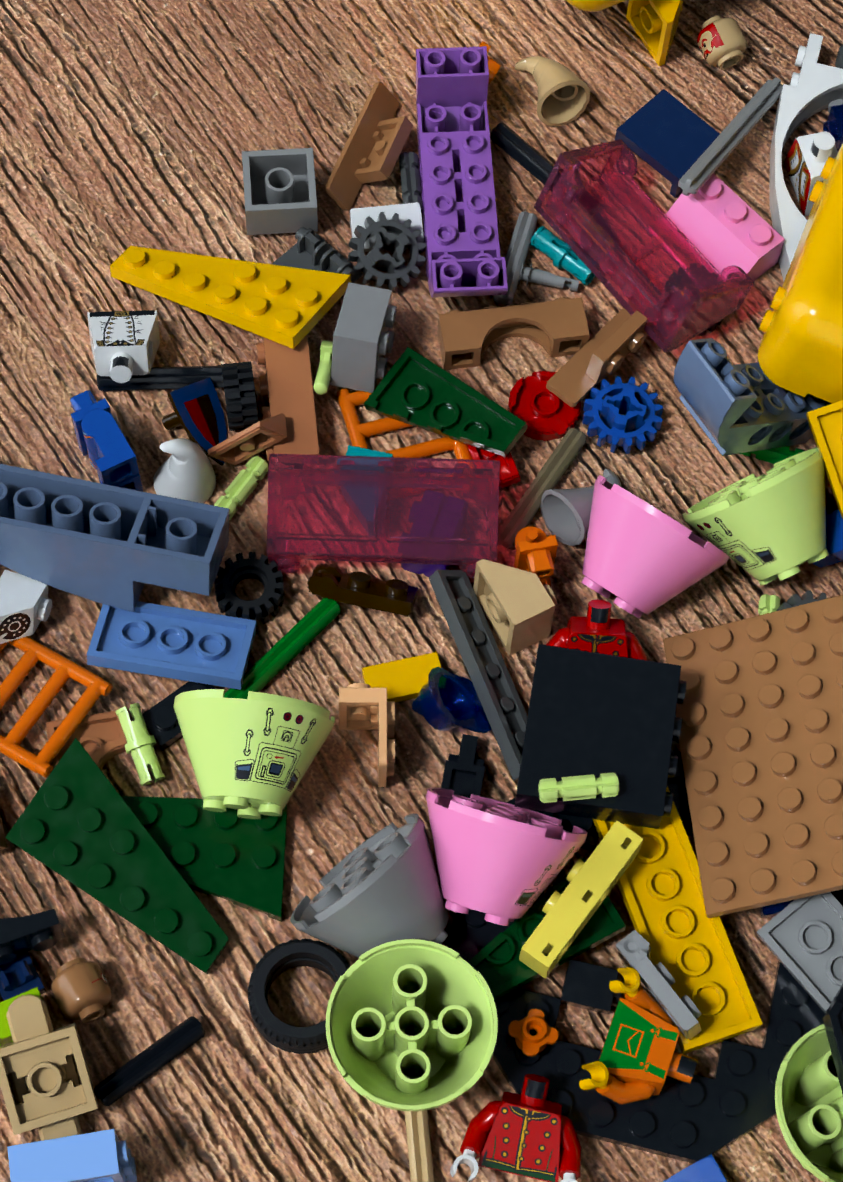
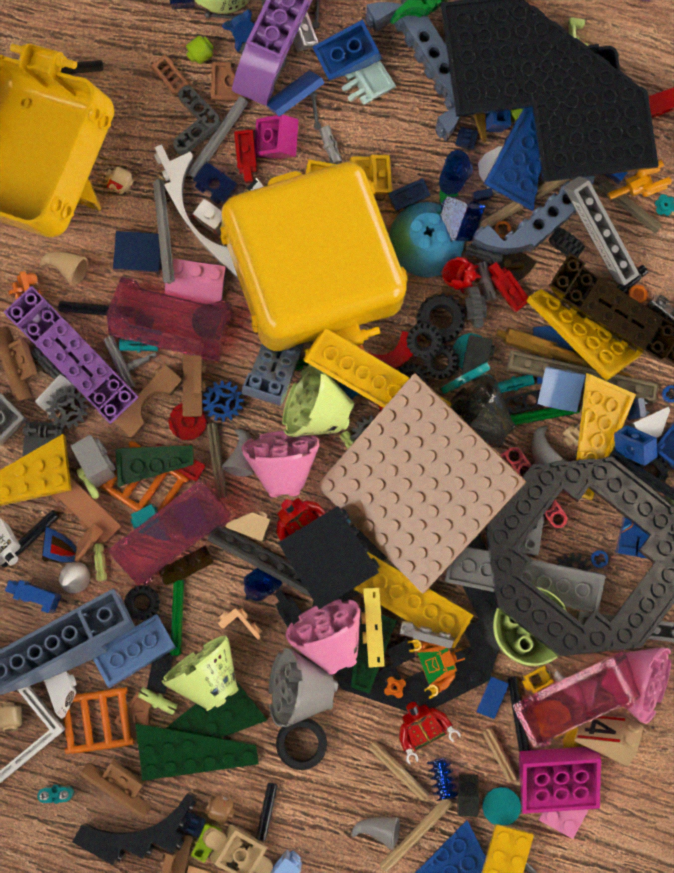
camera: 40 degrees left, 20 degrees up
(239, 395) = (67, 527): black tyre -> none
(401, 677) = (231, 588): yellow tile -> none
(417, 992) = (359, 748): yellowish green cone -> none
(536, 552) = (240, 496): orange hips -> none
(578, 787) = (340, 589): yellowish green axle -> none

